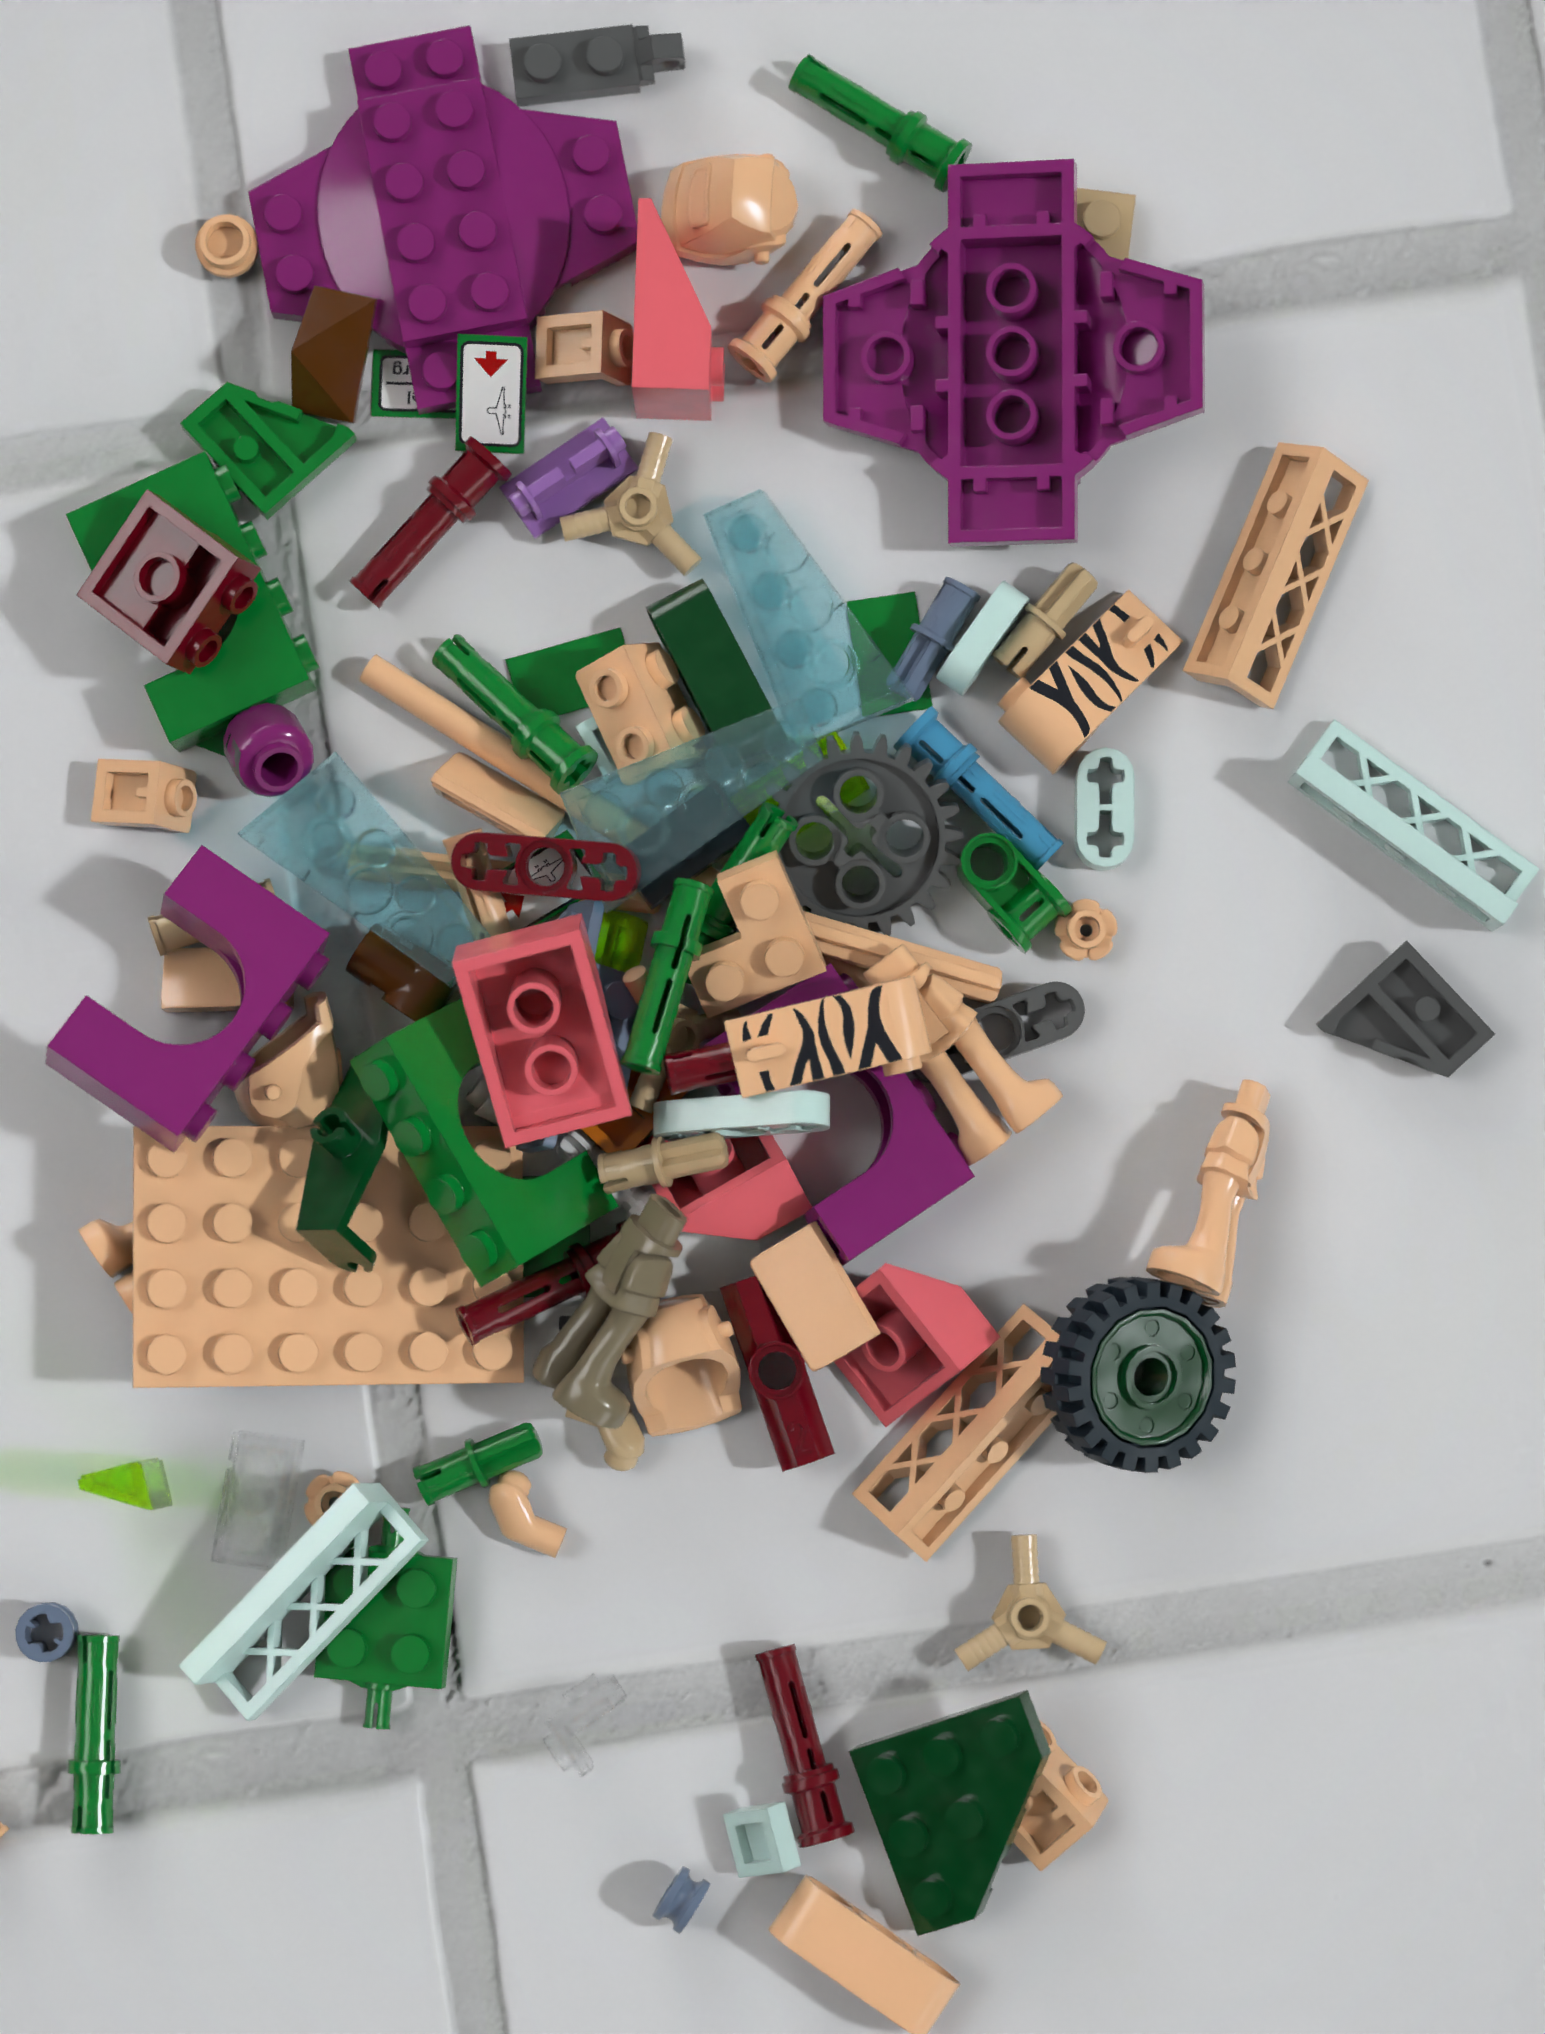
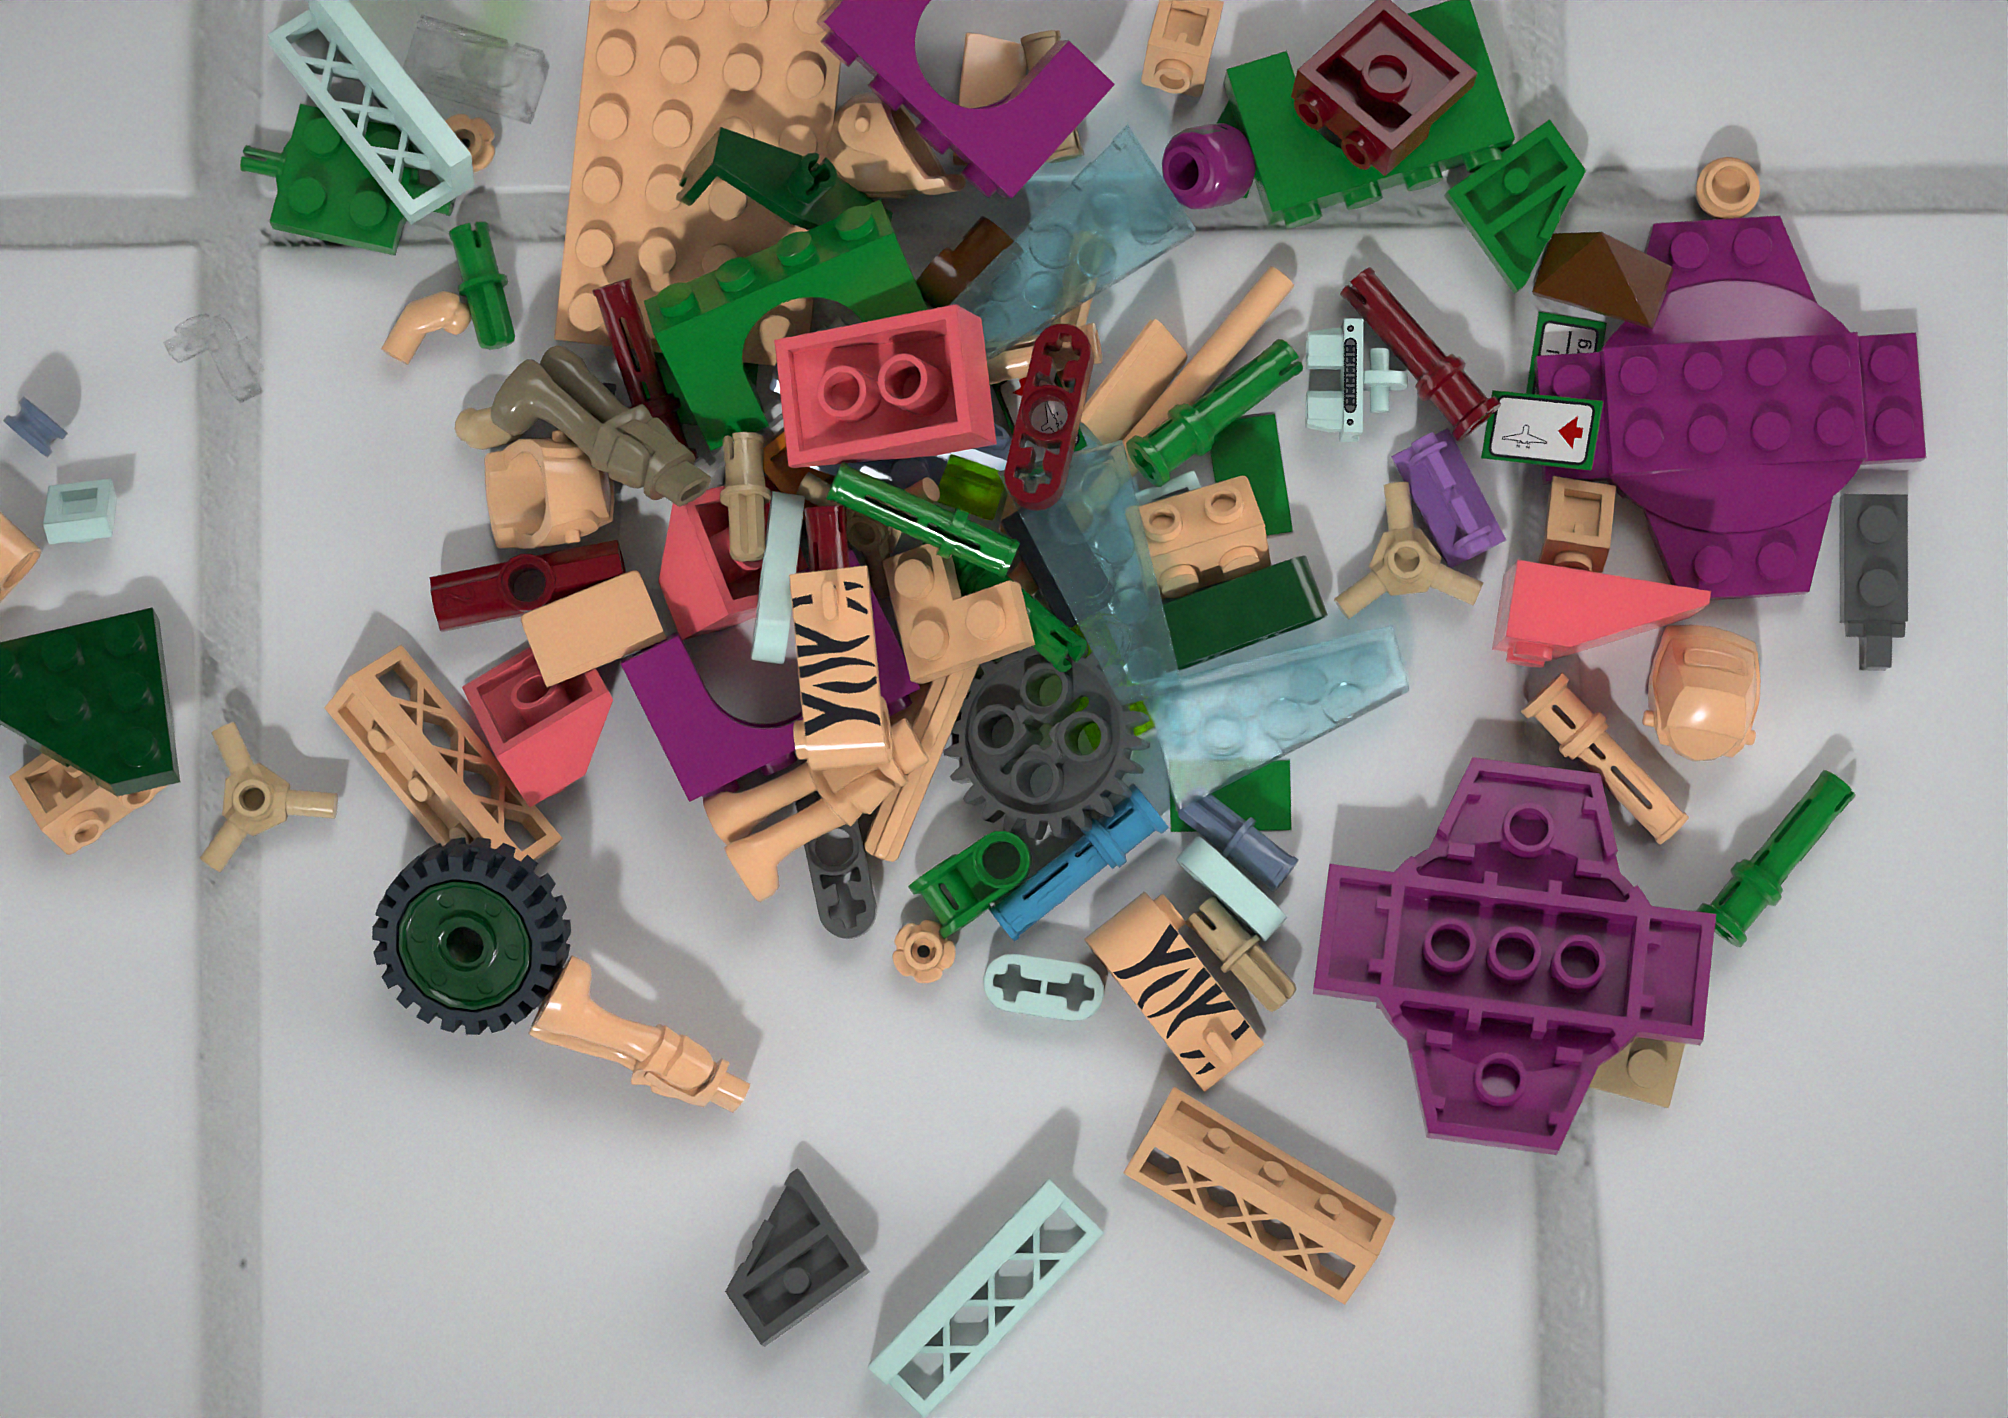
camera: 100 degrees right, 0 degrees up
(437, 592) = (1343, 351): none -> light aqua hips
(809, 1777) = (134, 565): dark red pin -> none

